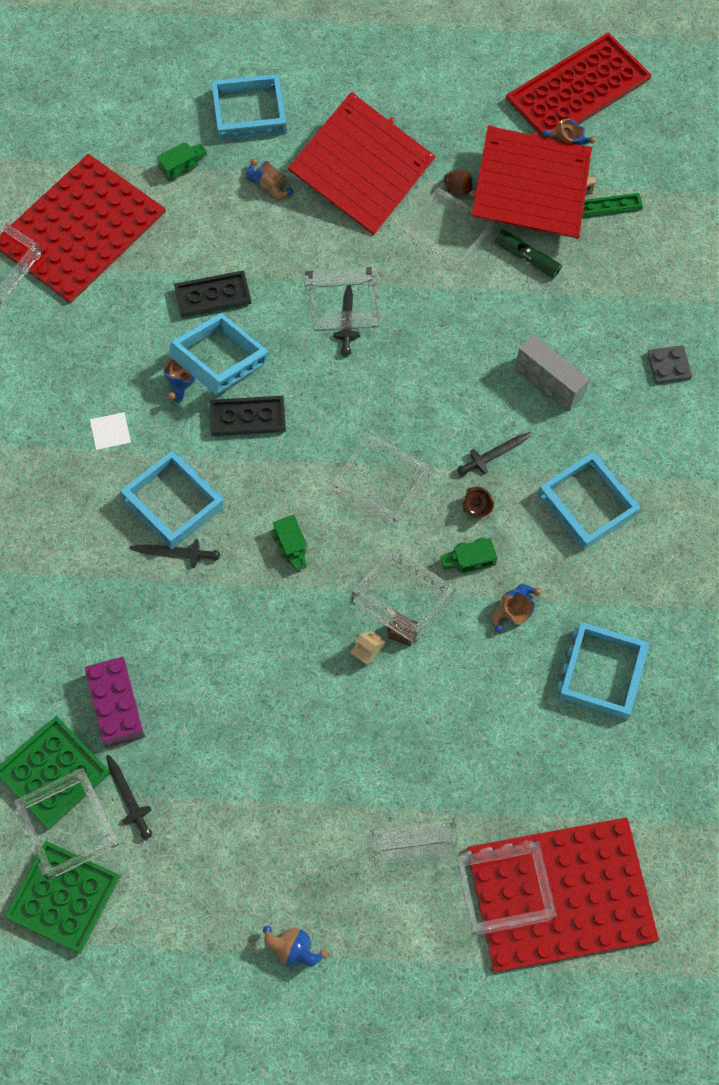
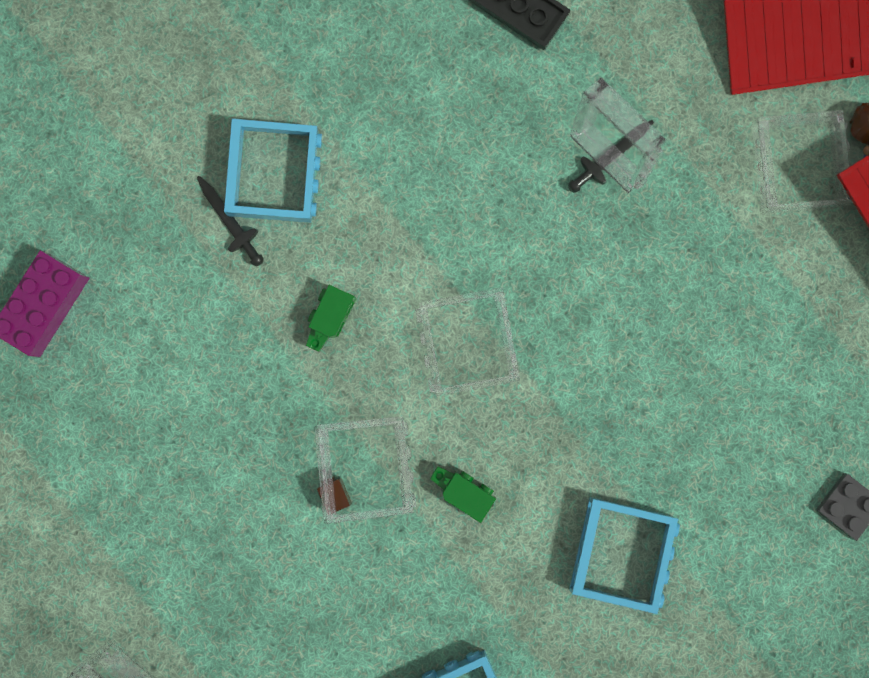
camera: 55 degrees right, 20 degrees up
(110, 431) = (294, 49): white sticker -> none
(178, 378) = (401, 57): piece -> none
(204, 374) = (452, 109): medium azure window -> none
(247, 415) = (421, 158): pearl dark grey plate -> none
(368, 646) = (290, 480): tan brick -> none
(478, 502) = (524, 454): reddish brown hair -> none
(480, 460) = (573, 414): pearl dark grey sword -> none
(515, 606) = (450, 577): medium nougat piece -> none
(535, 257) = (852, 279): dark green piece -> none
(551, 372) = (729, 405): light grey brick -> none

